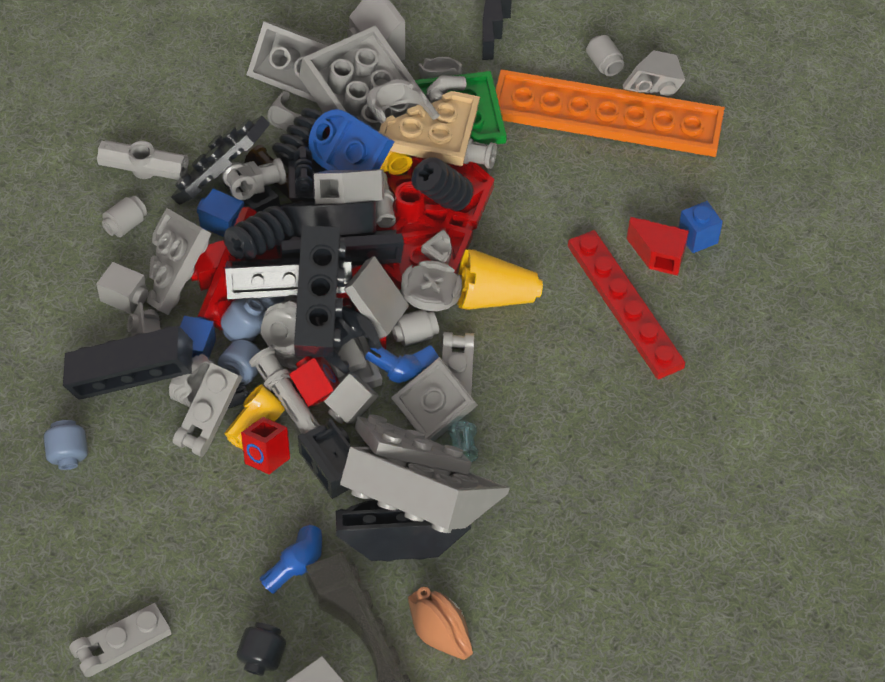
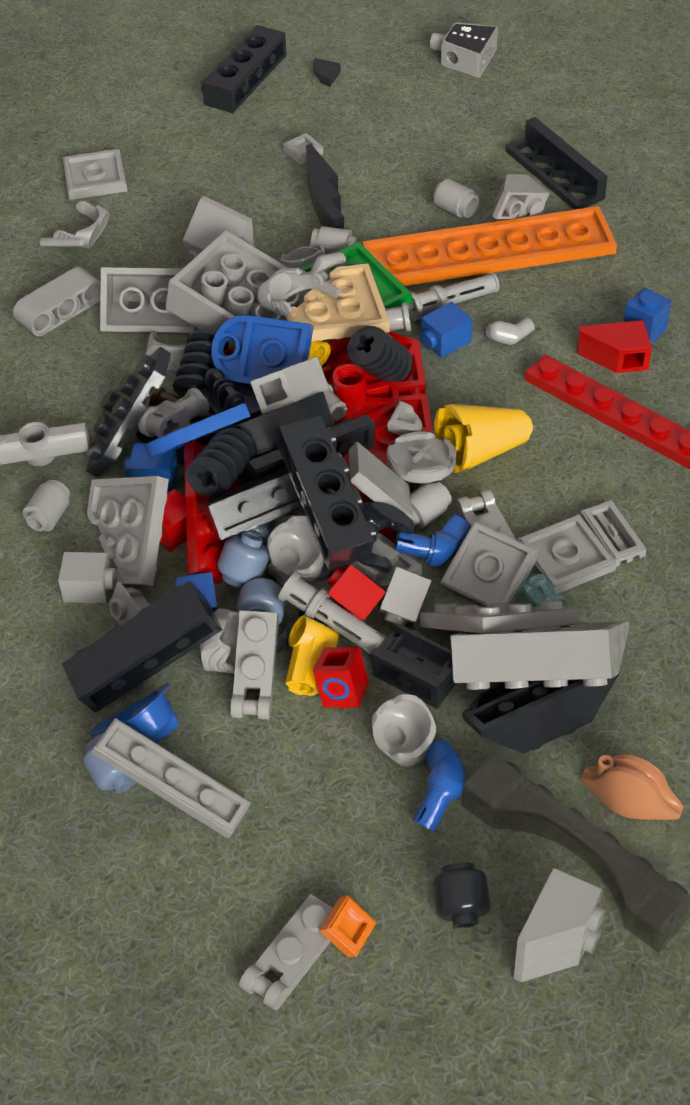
camera: 20 degrees left, 5 degrees down
(98, 474) = (171, 778): none -> light grey tile
(104, 421) = (149, 716): none -> blue piece
(167, 637) = (347, 926): none -> orange tile
(223, 36) = (57, 301): none -> light grey beam
(258, 199) = (197, 431): none -> tile
(289, 506) = (404, 729): none -> light grey hair
(476, 59) = (332, 239): none -> light grey brick
(507, 412) = (569, 553): none -> light grey tile
(523, 177) = (446, 329): none -> blue brick
(536, 146) = (437, 296): none -> light grey pin
(555, 430) = (623, 553): none -> light grey tile
(577, 199) = (509, 333): none -> light grey arm
(722, 49) = (565, 164): none -> black fence

